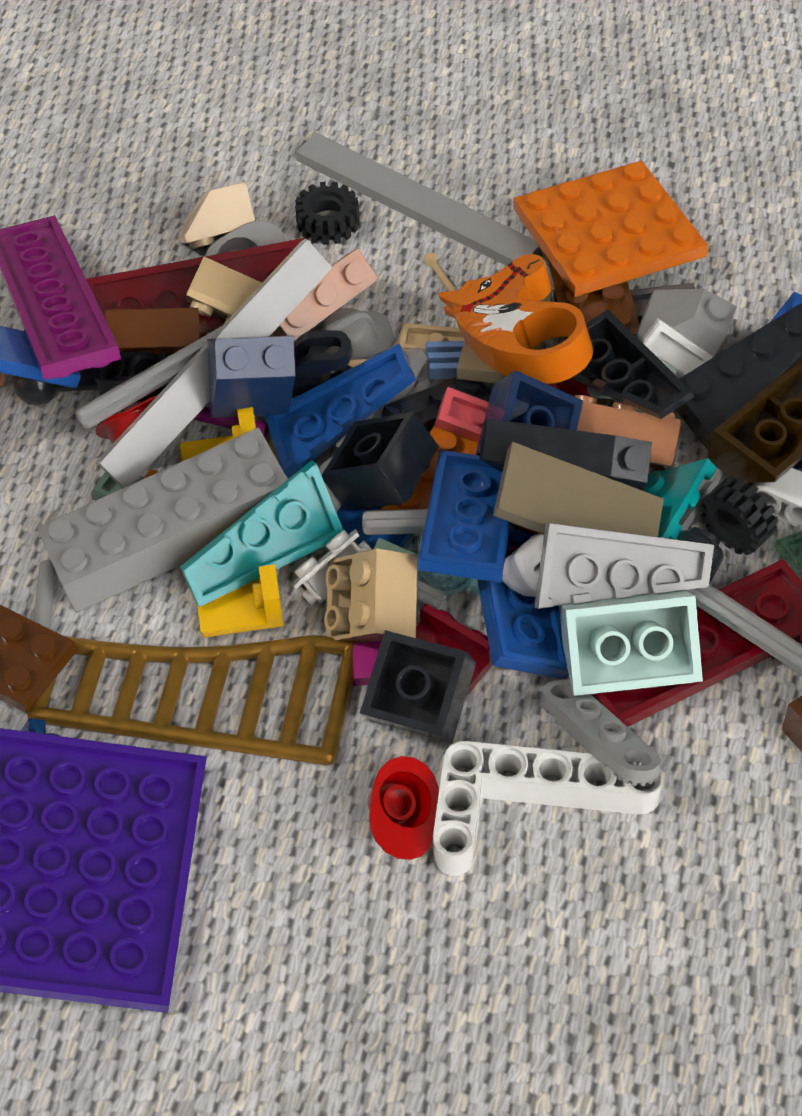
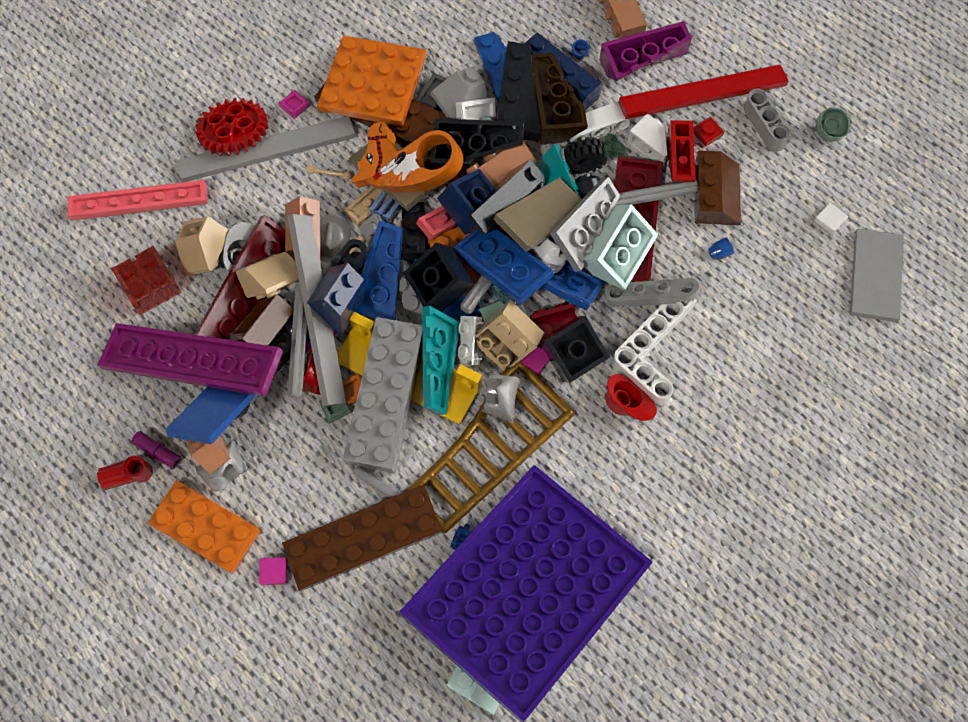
camera: 55 degrees left, 15 degrees up
(131, 204) = (146, 280): none -> clear red piece
(234, 136) = (137, 200): none -> coral plate
(272, 648) = (501, 396): none -> light grey hair
(329, 226) = (233, 183): black tyre -> none
(409, 148) = (232, 127): none -> red gear
(504, 186) = (294, 104): none -> dark pink tile
(767, 787) = (721, 249): none -> blue hose

